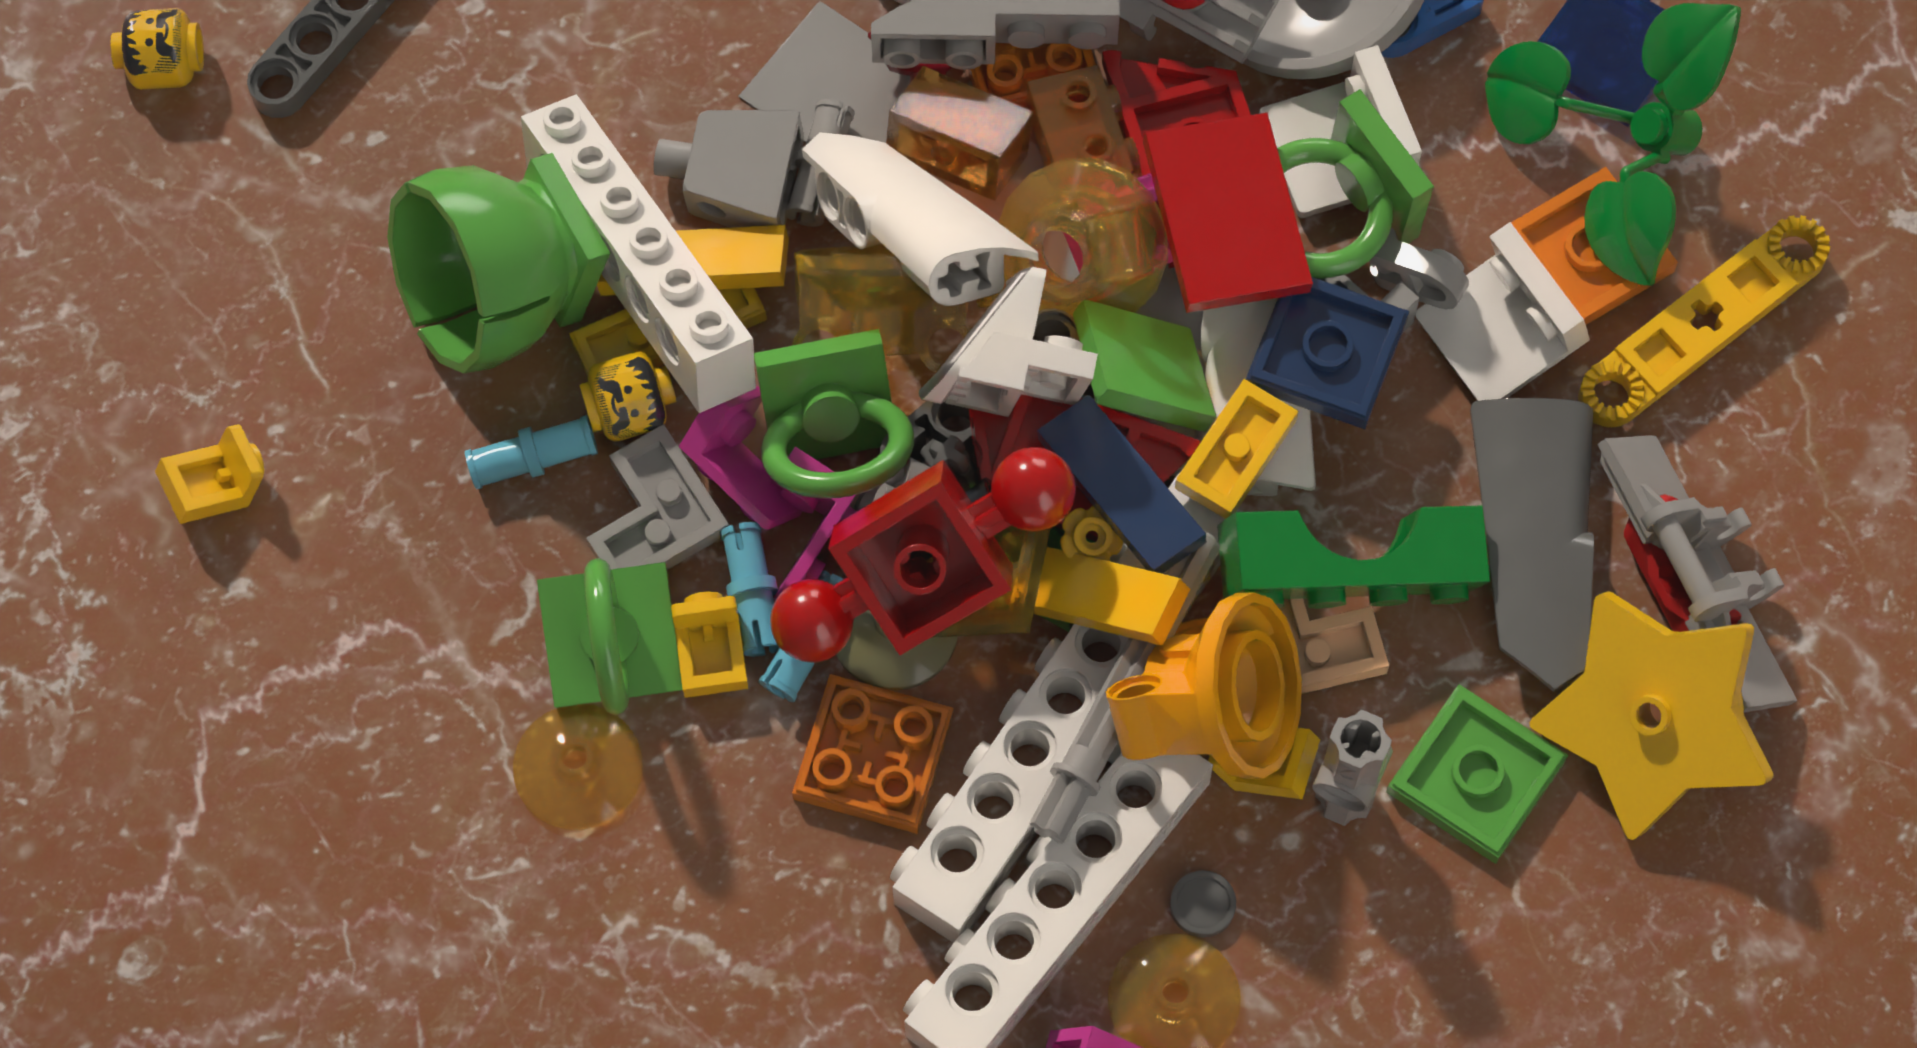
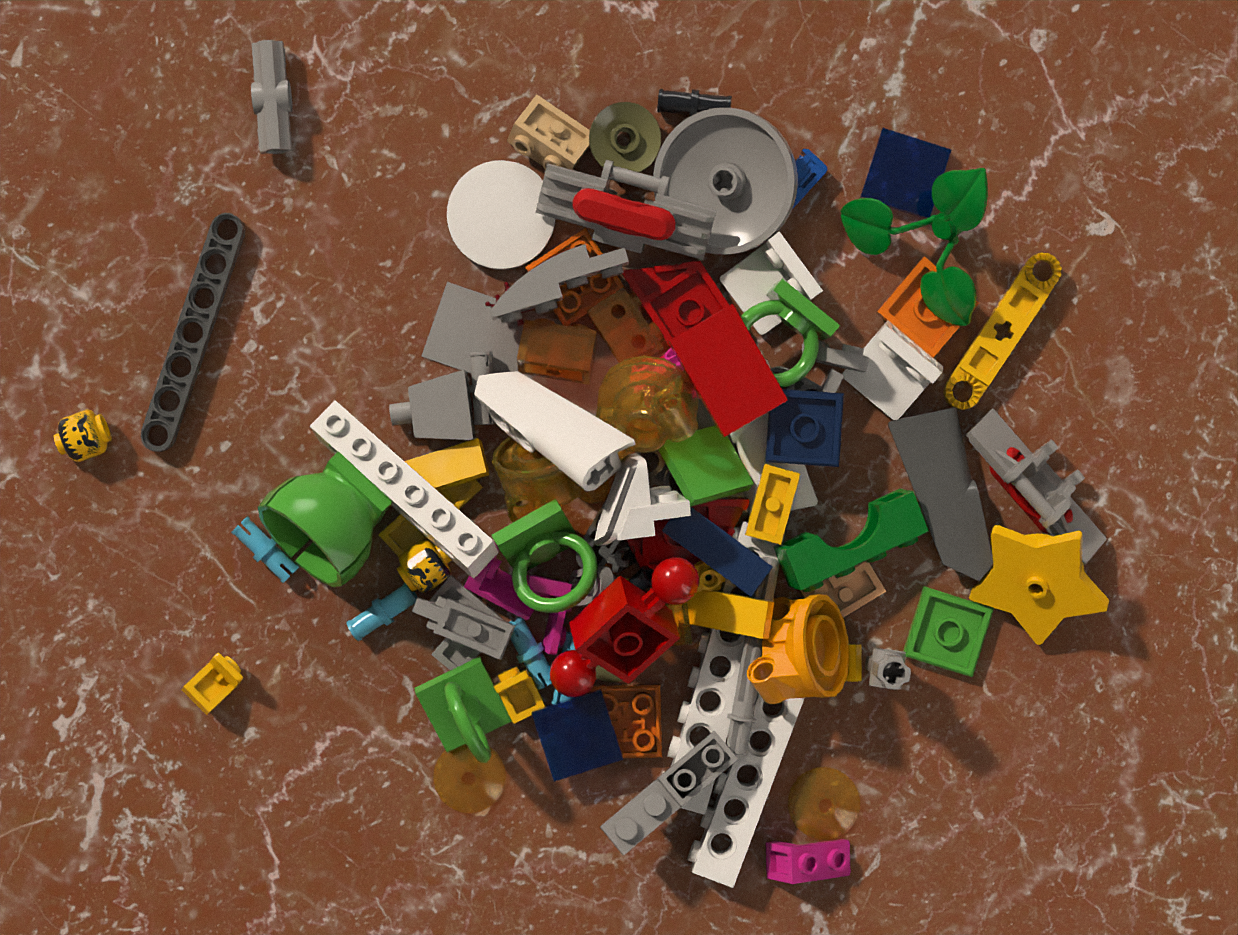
camera: 20 degrees left, 20 degrees up
(377, 301) = (265, 549): none -> medium azure pin
(661, 499) = (466, 625): none -> light grey hinge
(784, 736) = (577, 735): none -> clear blue tile
(911, 862) = (668, 793): none -> light grey slope
(1203, 903) = (823, 747): dark grey piece -> none

